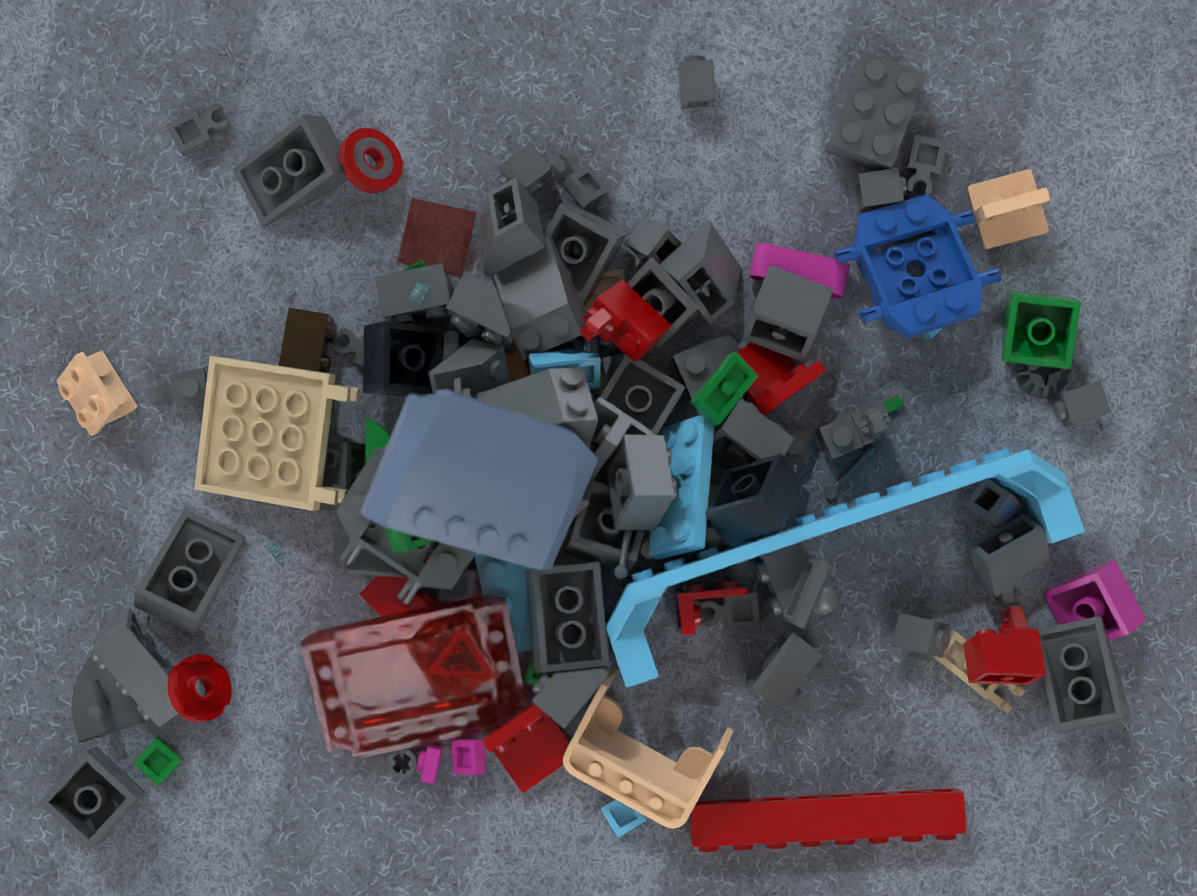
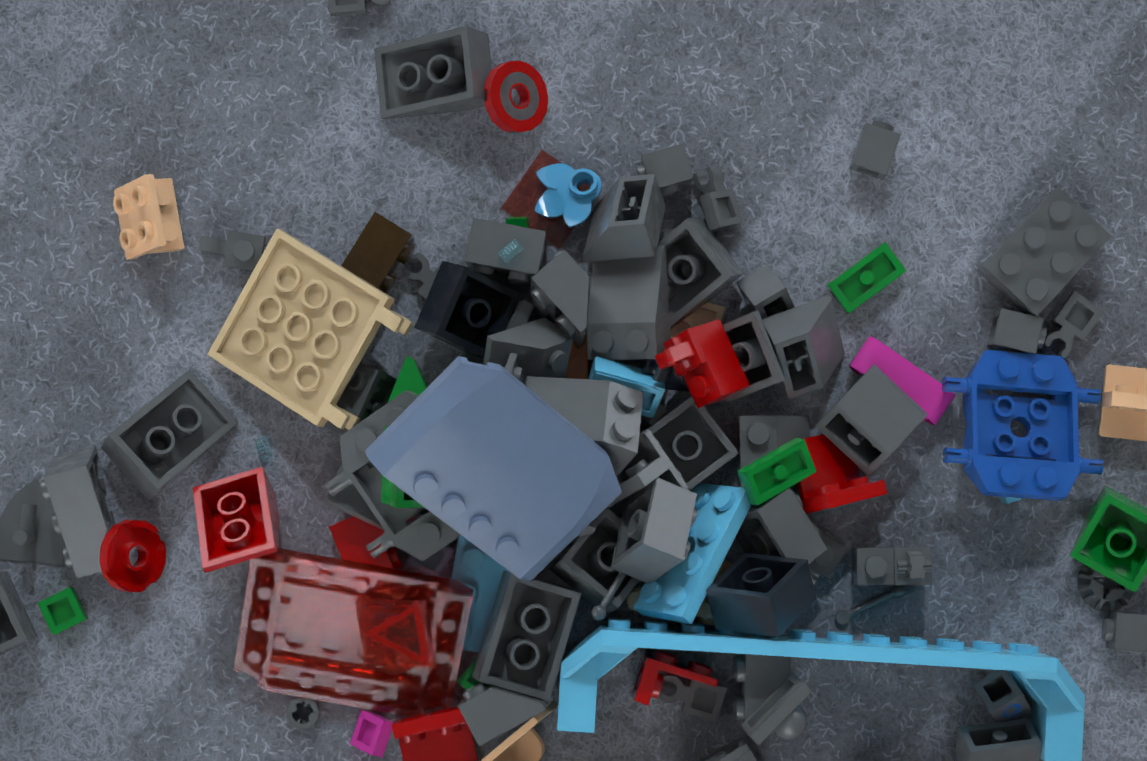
camera: 30 degrees right, 0 degrees up
(275, 619) = (236, 519): none -> red slope
(429, 763) = (330, 723): dark pink plate -> none
(445, 228) = (562, 193): none -> dark azure plate
(733, 195) = (866, 278): none -> green plate
(893, 404) = (942, 553): green piece -> none

